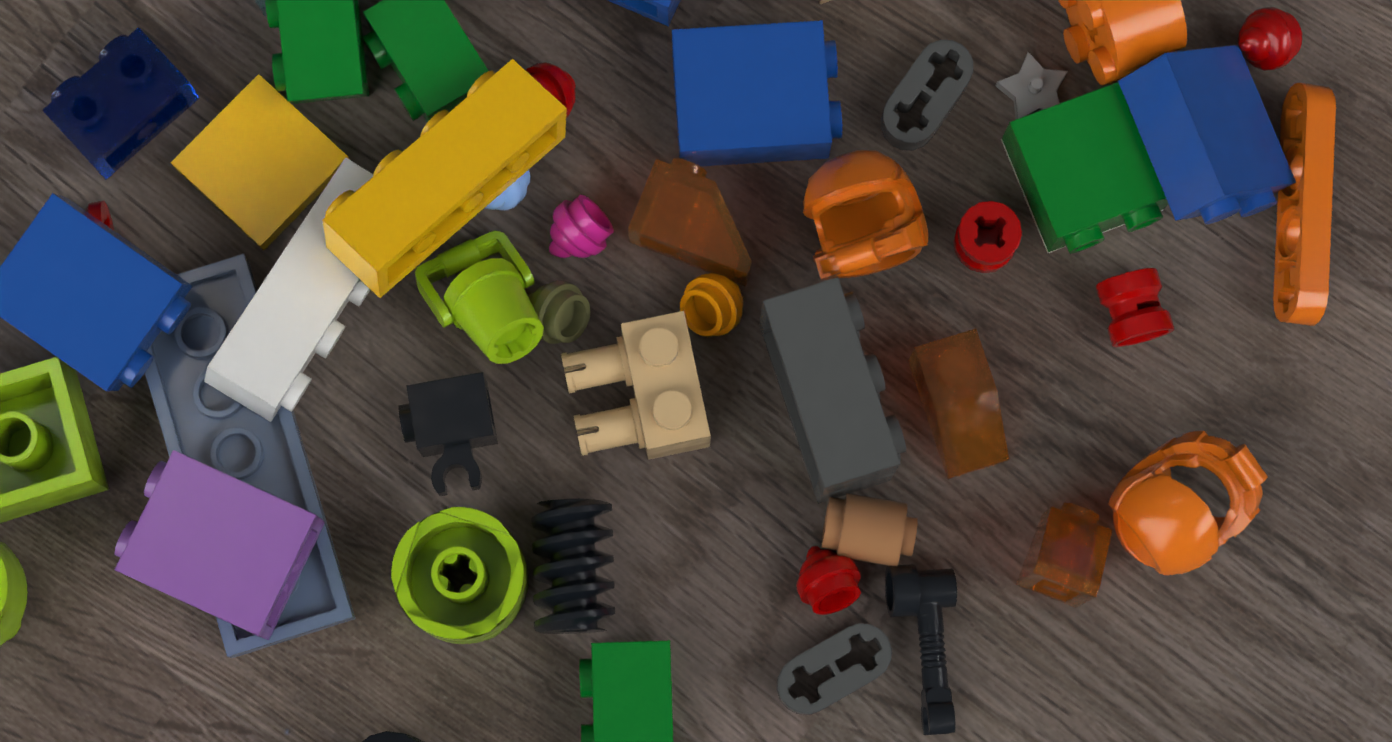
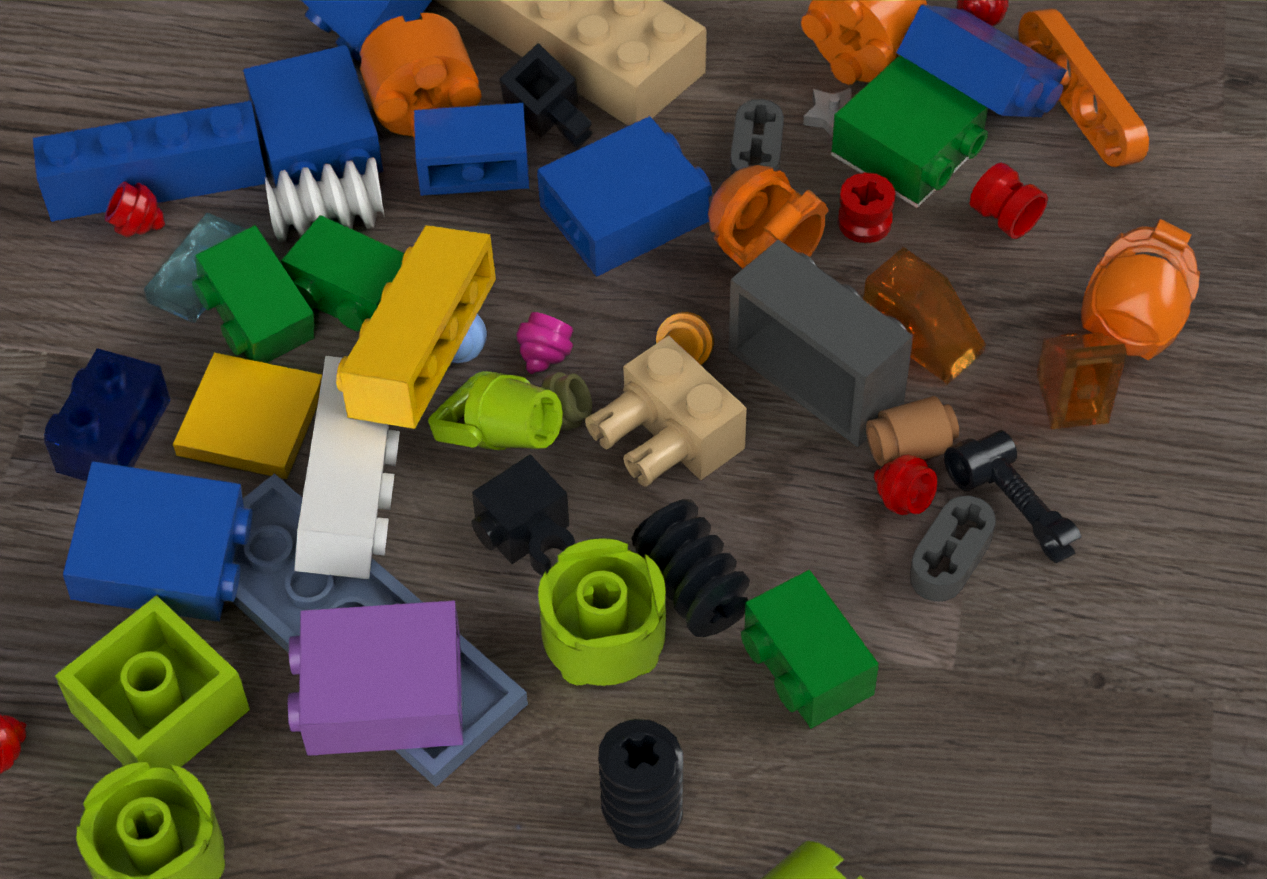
camera: 25 degrees left, 25 degrees down
(689, 221) = (631, 294): clear orange slope -> none

